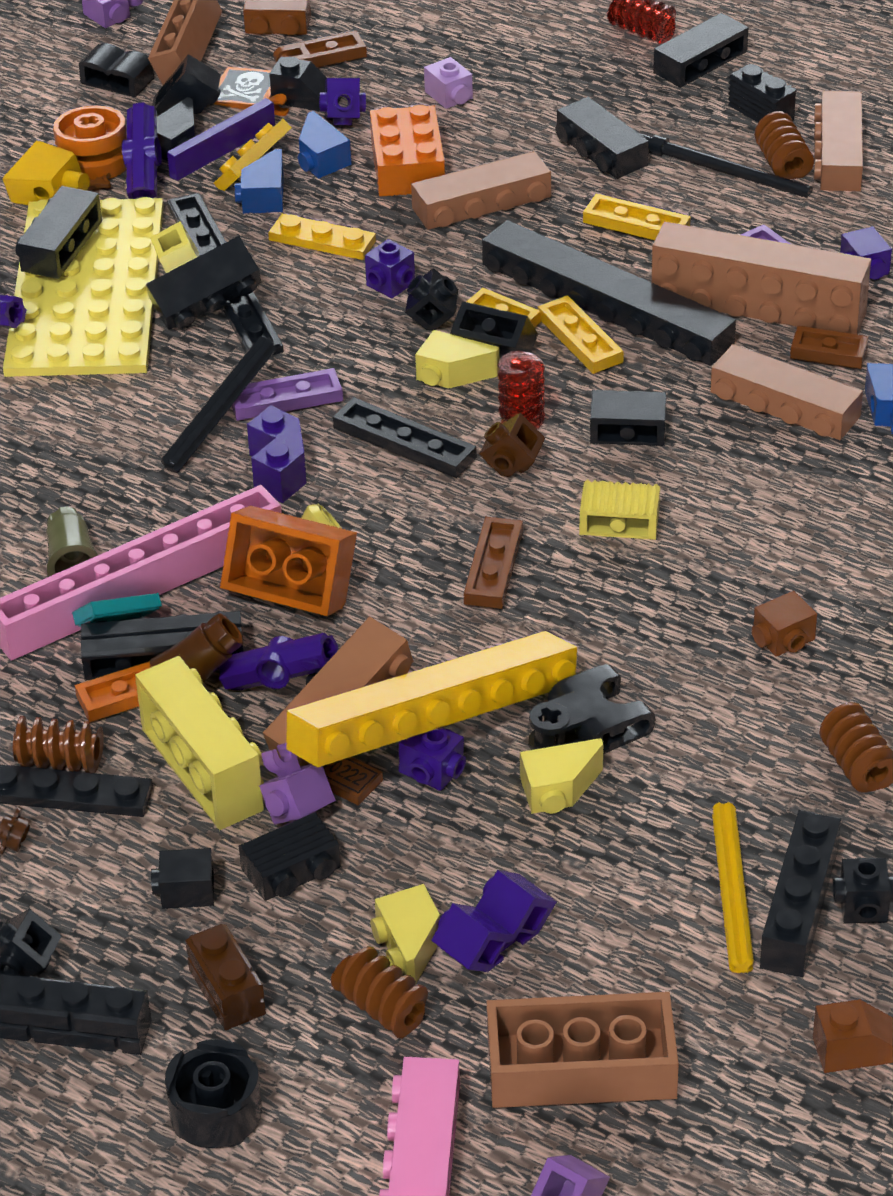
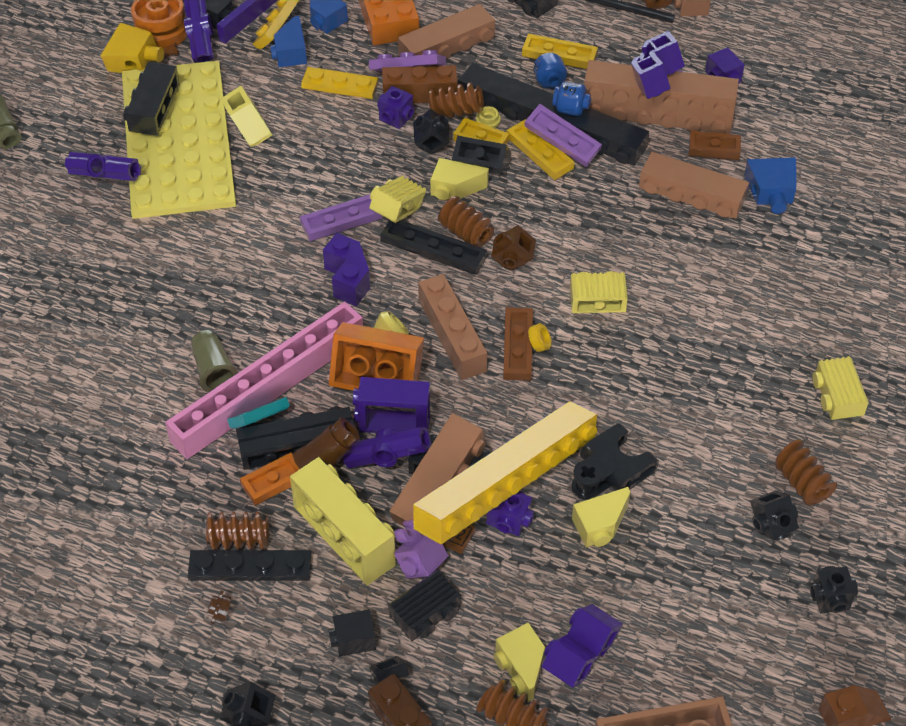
camera: 10 degrees left, 10 degrees up
(204, 284) = (267, 134): black brick -> none
(218, 404) = (296, 232): black axle -> none
(235, 923) = (389, 667): none -> black tile
(243, 312) = (282, 128): black tile -> none
(298, 593) = (391, 394): none -> dark purple window
(365, 374) = (397, 198): none -> light yellow brick
(406, 533) = (452, 327): none -> nougat brick
(417, 214) = (406, 59): none -> medium lavender plate
(436, 242) = (419, 80): none -> dark orange brick
(454, 410) = (465, 222): none -> dark orange piece
(476, 266) = (457, 102): none -> dark orange piece
(518, 289) = (489, 117): none -> light yellow plate
(521, 387) = (512, 203): clear red piece -> none
(524, 556) = (539, 337): none -> yellow tile
(612, 315) = (563, 135): none -> medium lavender plate
(616, 240) = (549, 68): none -> blue head
(628, 417) = (588, 216): brick -> none
(632, 269) = (571, 98): none -> blue head
(732, 888) = (739, 595): yellow axle -> none
(756, 222) = (659, 58): none -> dark purple brick
(784, 624) = (732, 376): dark orange brick -> none
(800, 894) = (790, 597): black brick -> none
(802, 789) = (774, 515): none -> black brick

